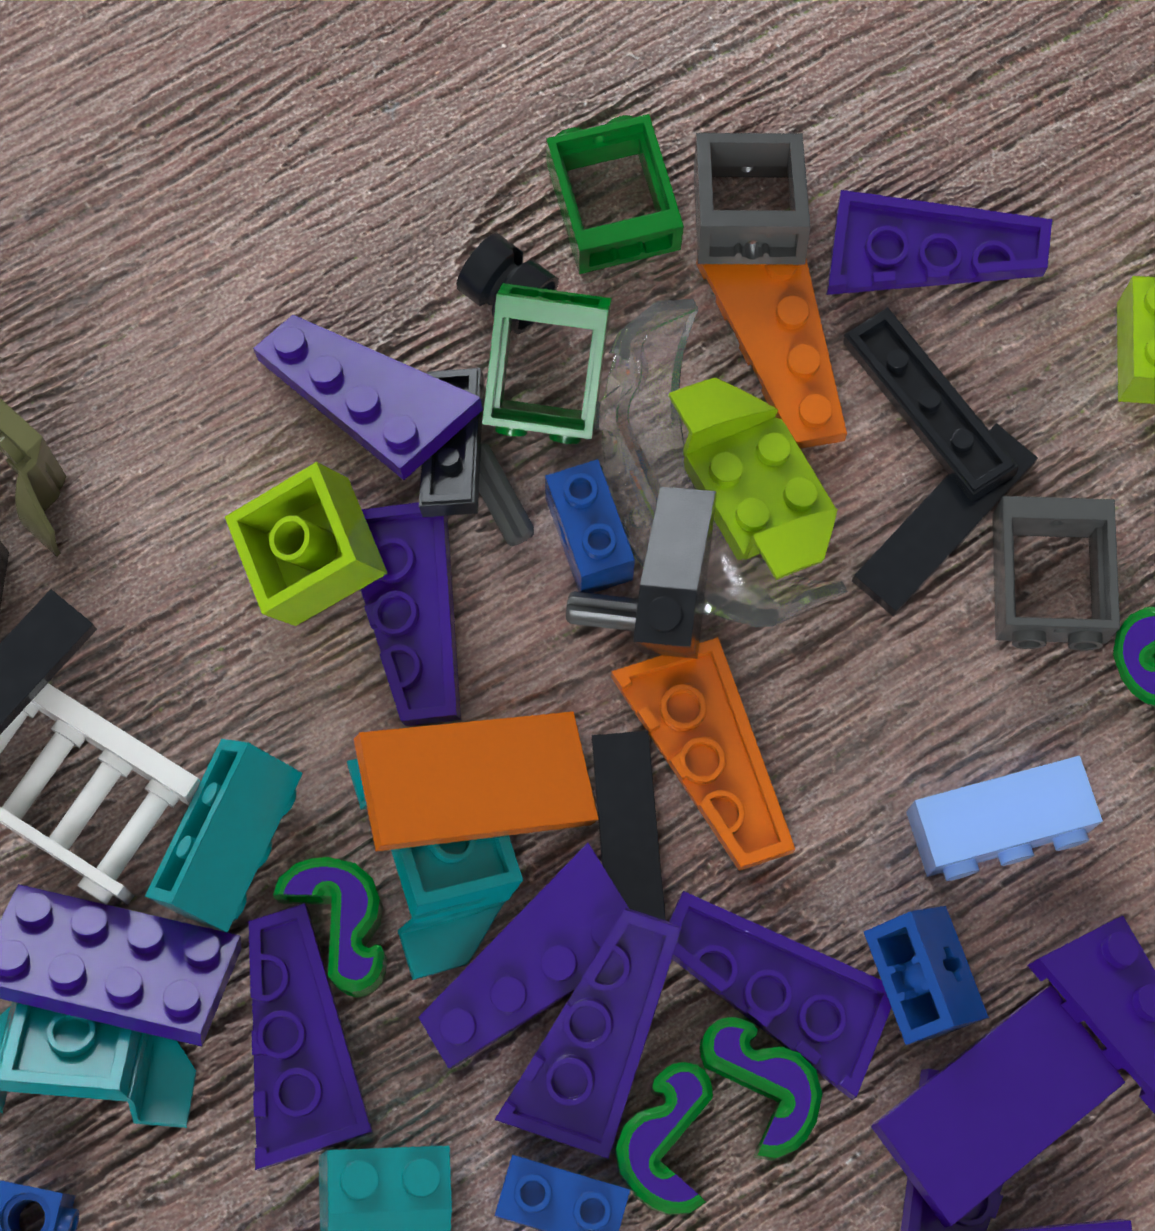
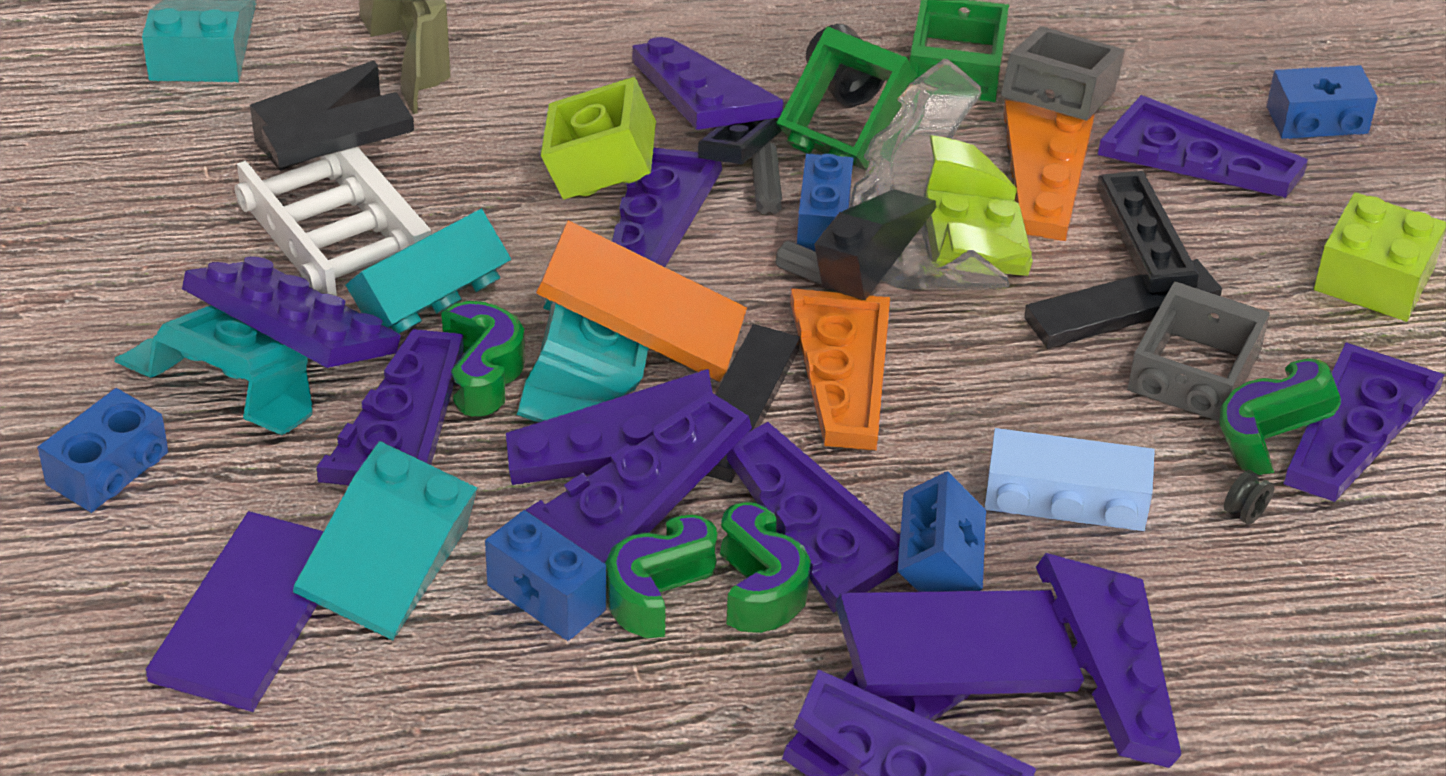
camera: 25 degrees right, 30 degrees down
(1029, 114) = (1321, 101): none -> blue brick

